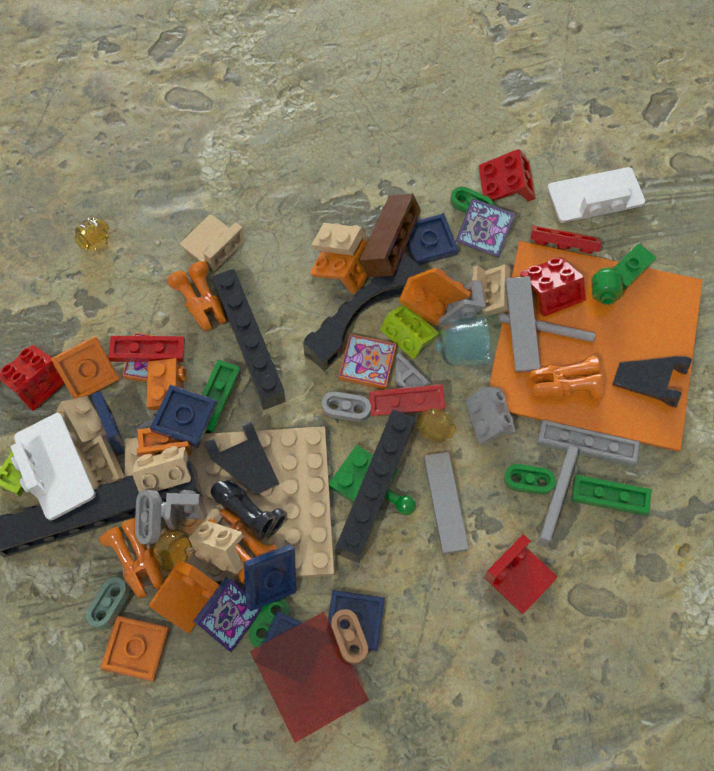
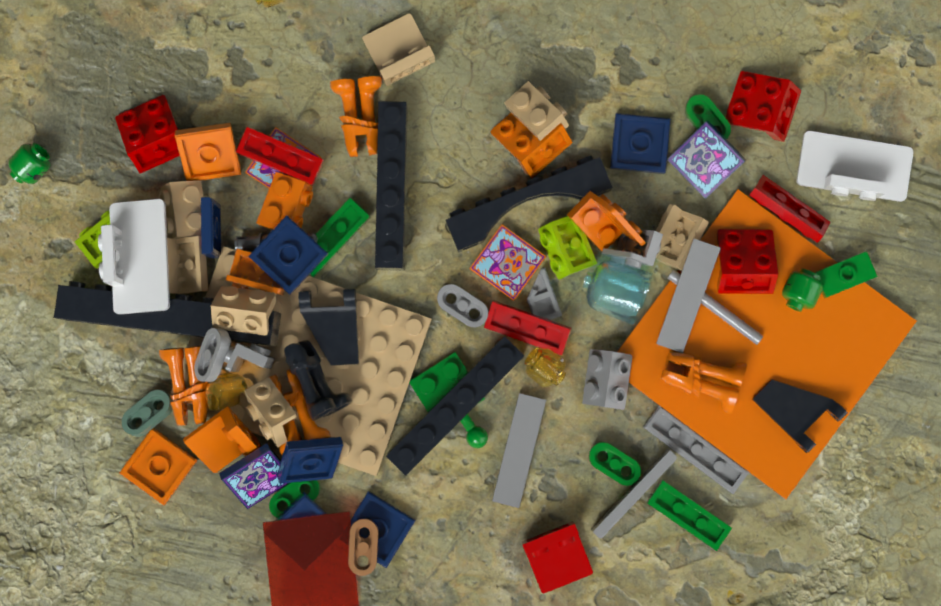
camera: 30 degrees right, 20 degrees up
(390, 235) = (594, 129): reddish brown brick -> none

